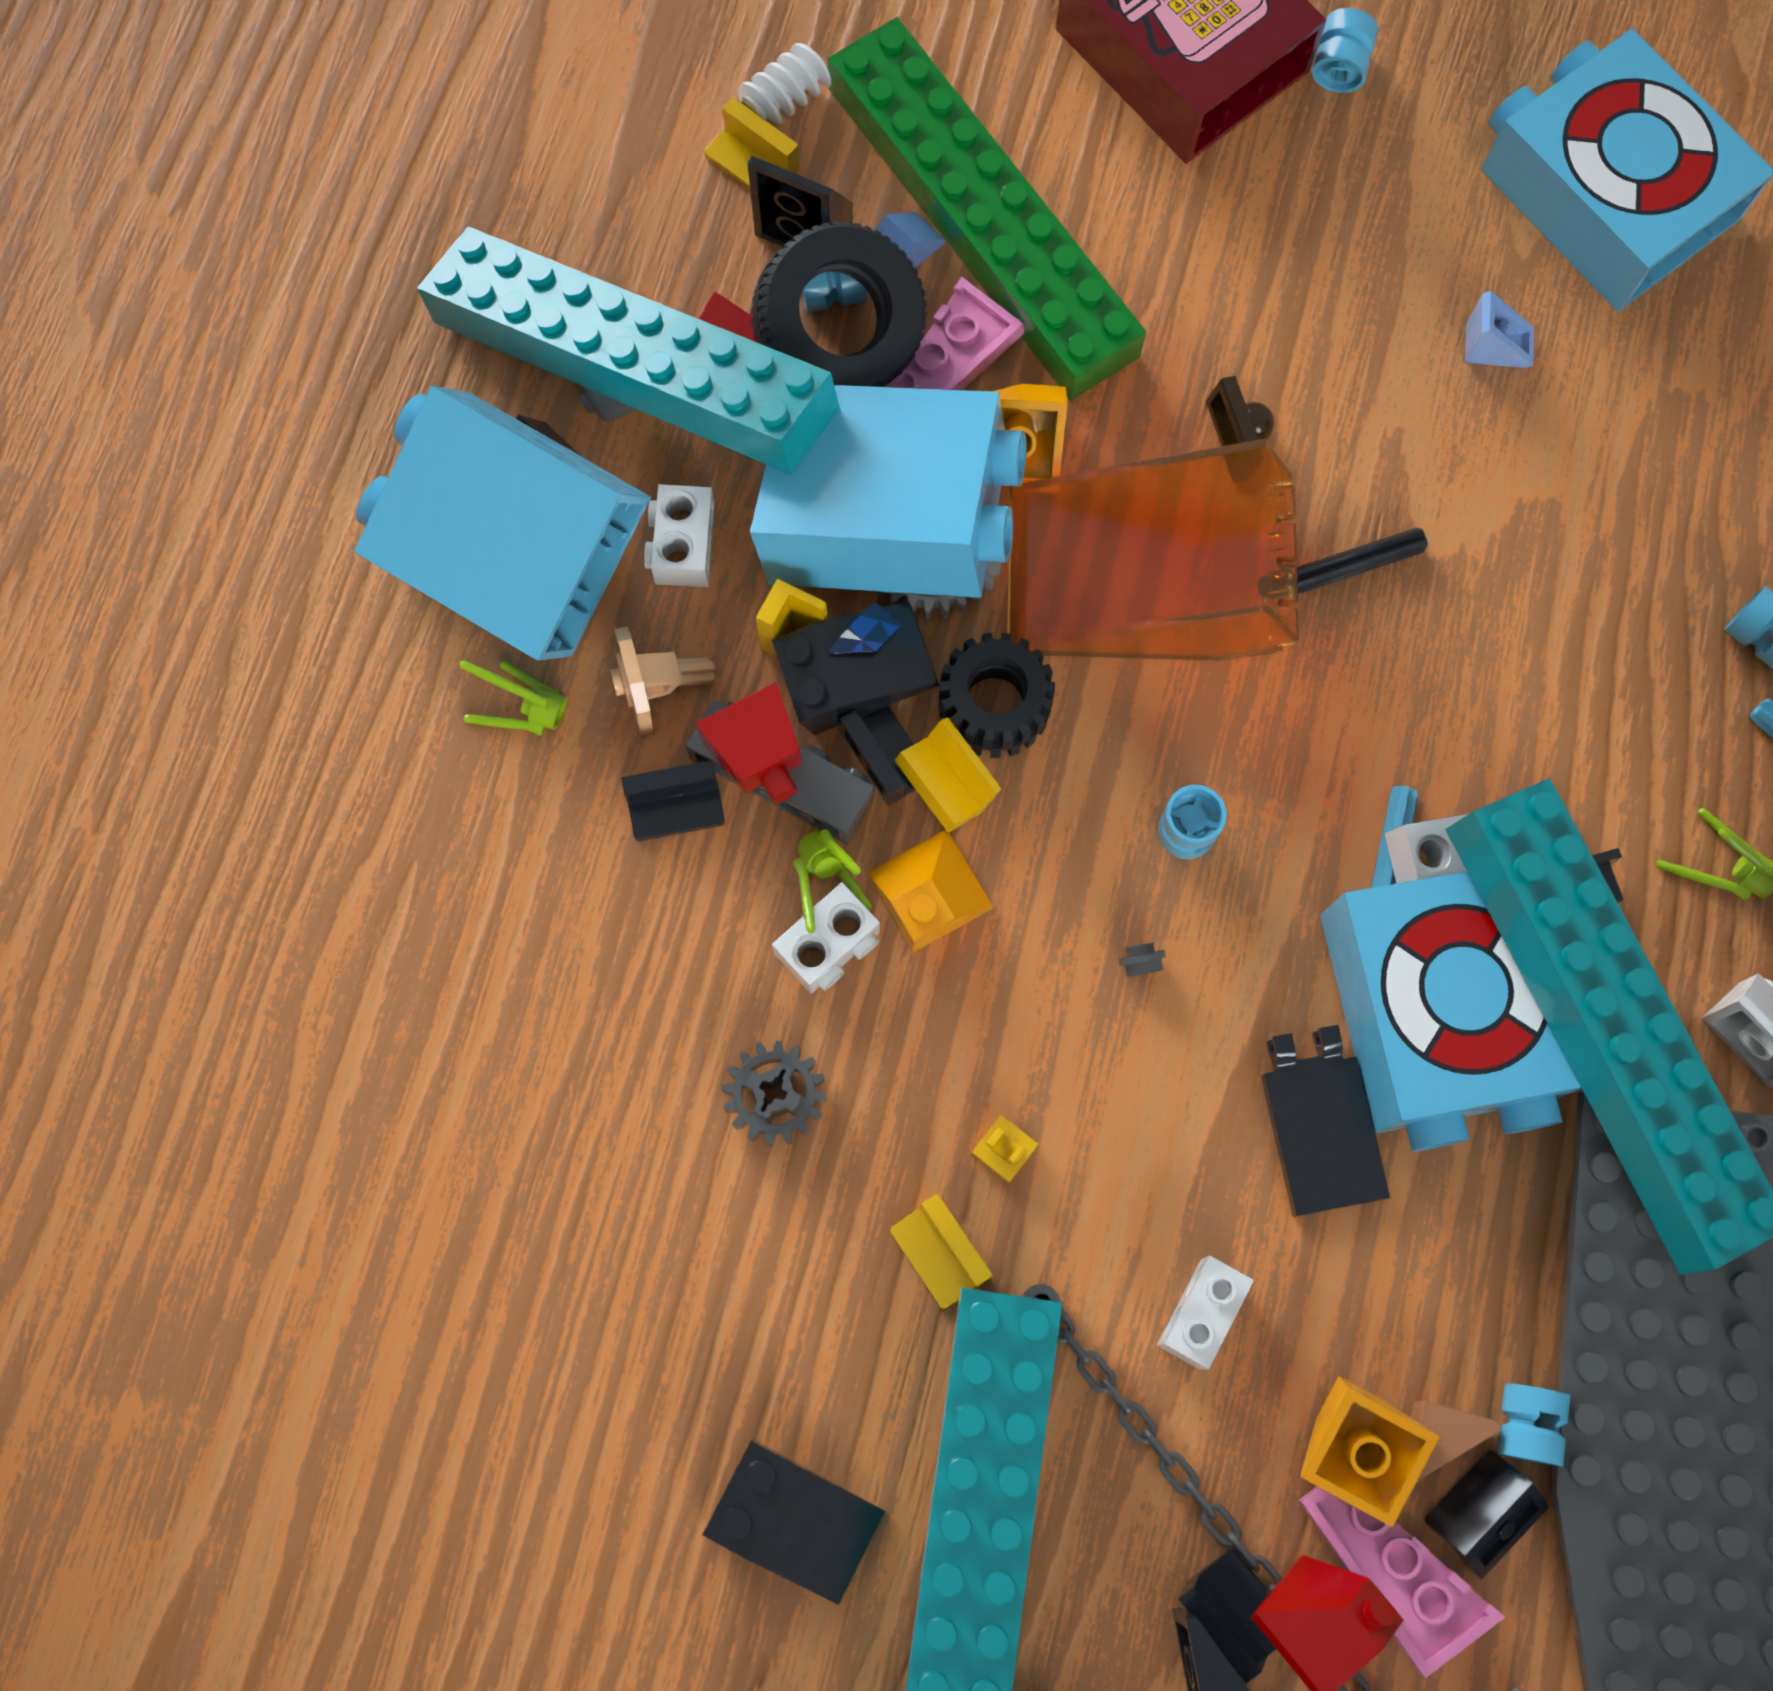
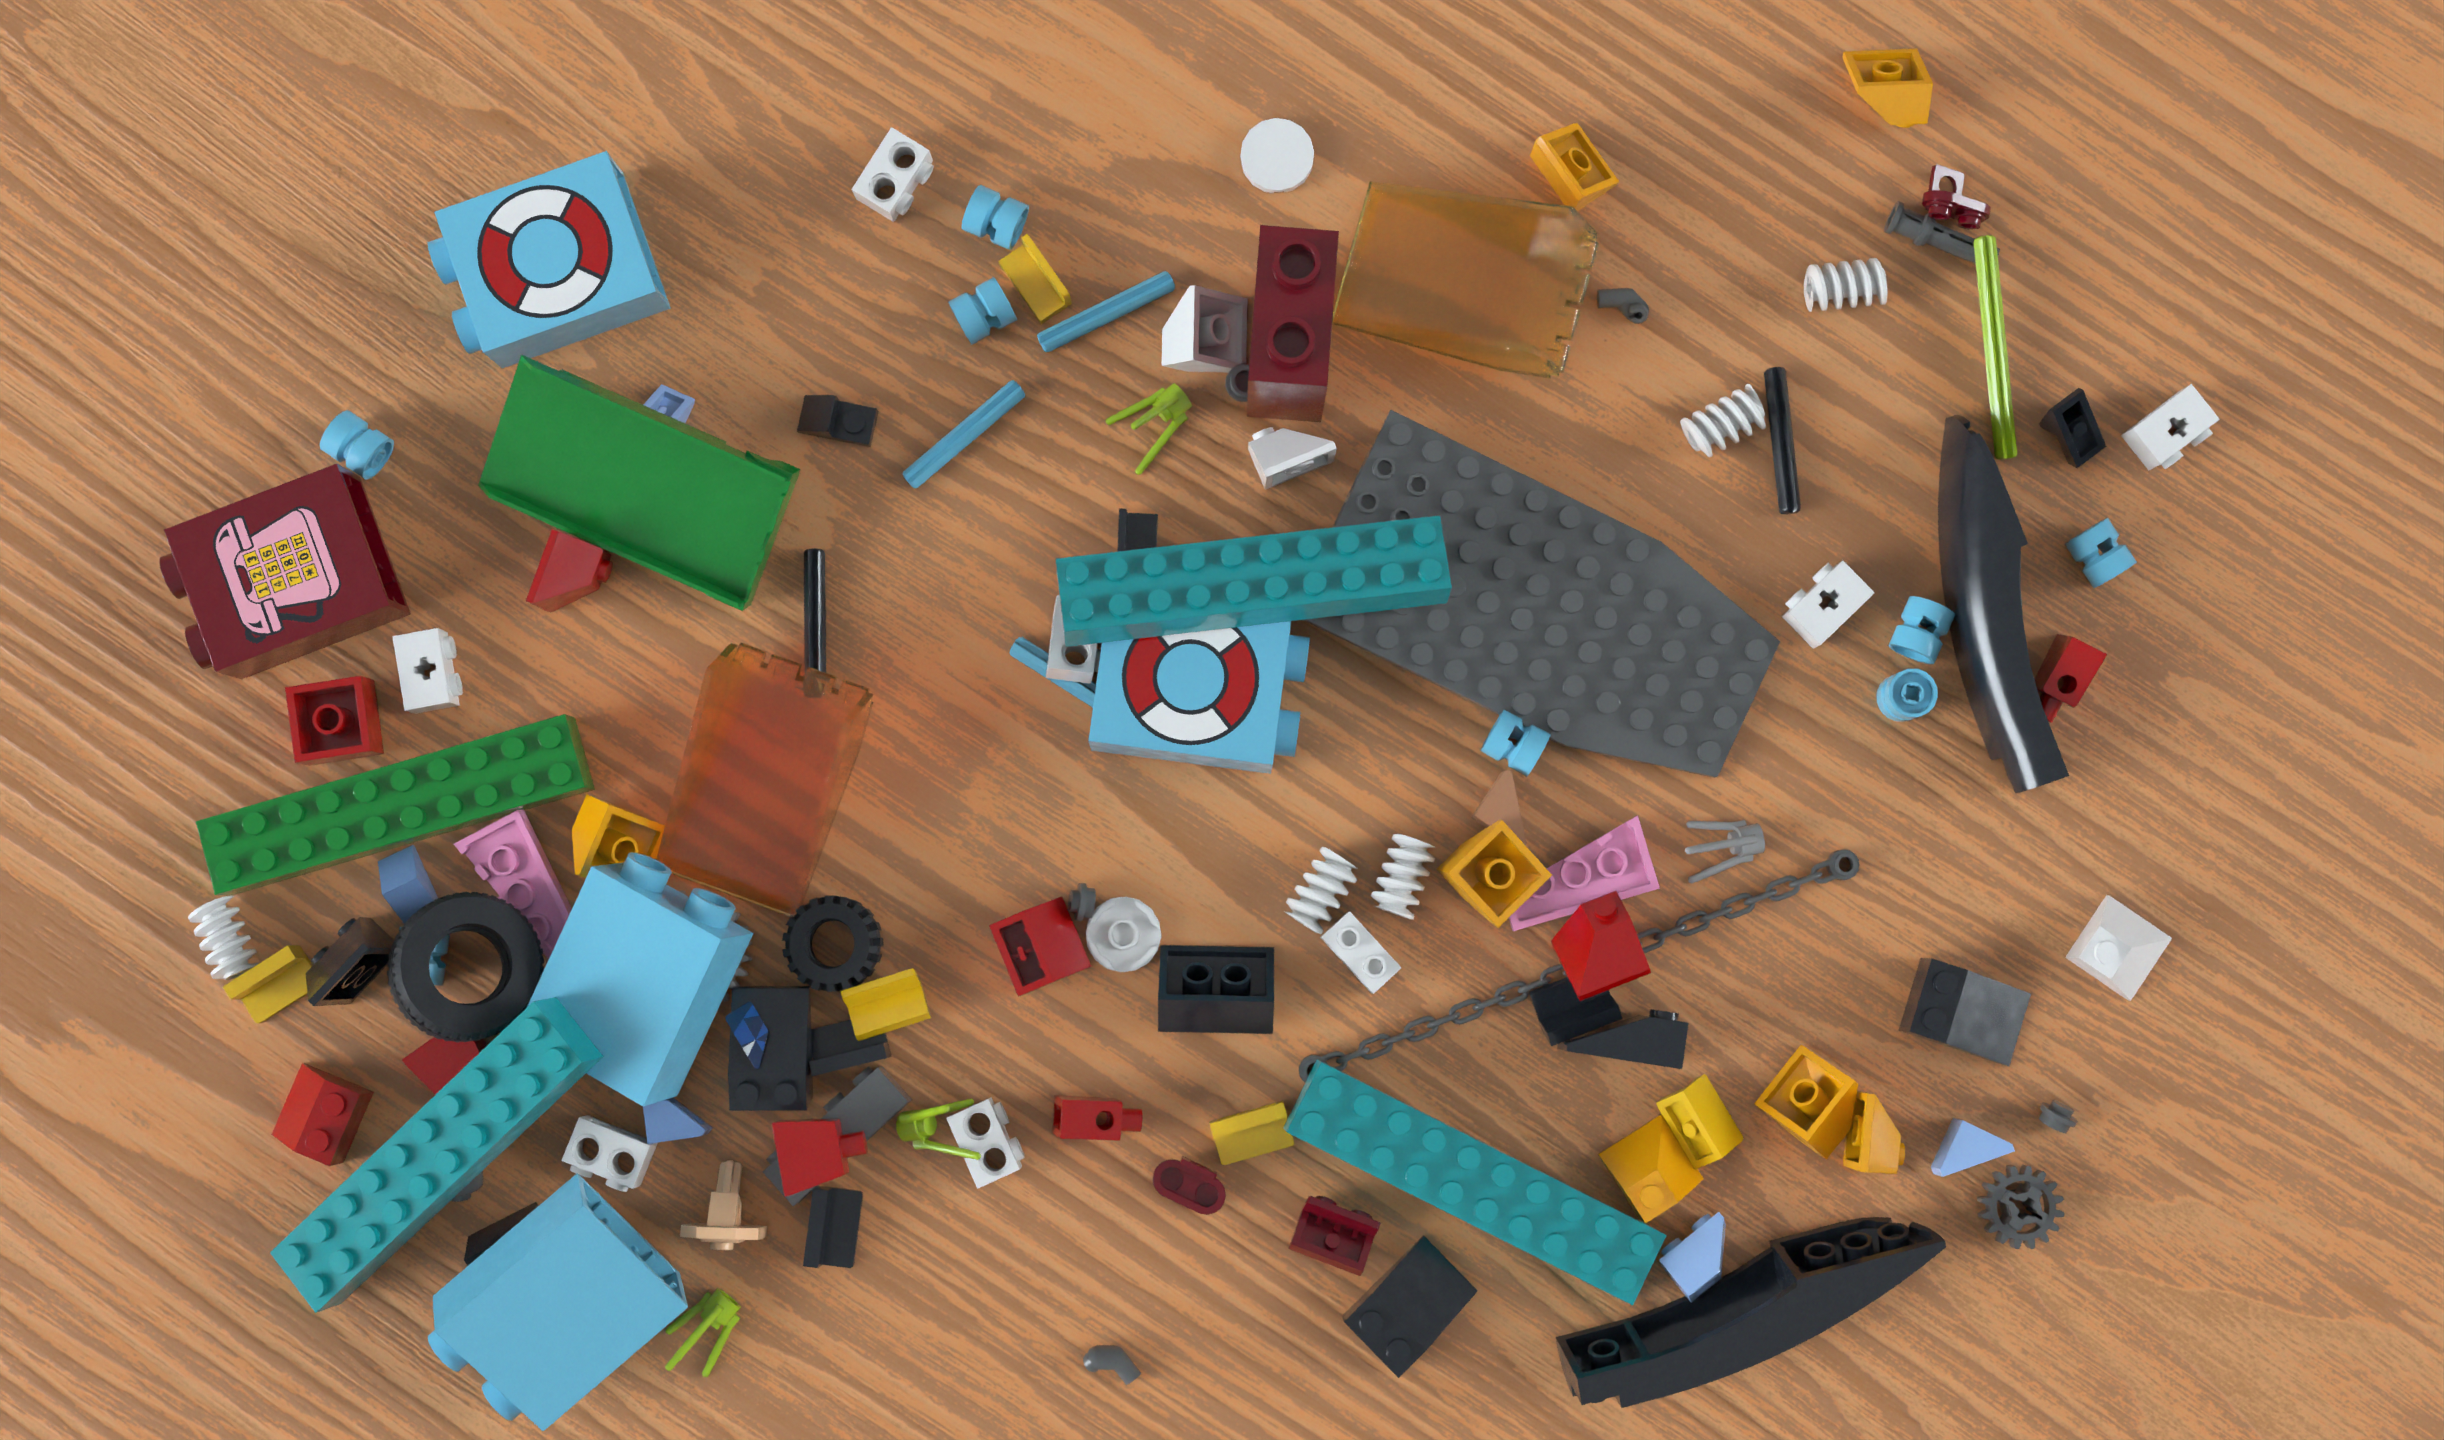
camera: 70 degrees left, 10 degrees up
(619, 1170) = (1111, 1358): none -> dark grey arm
(628, 242) = (321, 1115): none -> red slope
(738, 587) = (672, 1121): none -> medium blue slope
(755, 1084) = (1080, 1233): dark grey gear -> none
(787, 609) = (707, 1095): yellow panel -> none
(852, 1395) = (1334, 1234): none -> dark red bracket
(854, 1196) = (1190, 1185): none -> dark red bracket
(889, 1033) = (1076, 1118): none -> red torso
(929, 890) = (971, 1047): light orange slope -> none
(1004, 1149) = (1191, 1057): yellow tile -> none
(1050, 117) = (334, 720): none -> red brick
(1075, 925) = (1040, 946): none -> red slope
(1096, 1151) = (1216, 989): none -> black slope
(1120, 1022) = (1123, 934): none -> white tile
(1135, 191) = (413, 656): none -> white brick
(1192, 821) = (987, 825): medium azure wheel -> none
(1233, 418) = (667, 661): dark brown tile -> none
(1263, 1238) = (1321, 890): none -> white piece
(1297, 288) = (568, 572): none -> red slope
(1318, 1334) = (1403, 875): none -> white piece
(1322, 1126) = (1253, 810): black tile -> none
(1427, 330) = (637, 482): none -> green piece
(1487, 1512) = (1564, 798): black panel -> none
(1575, 518) = (837, 420): none -> black slope
(1620, 656) = (963, 434): none -> medium azure axle

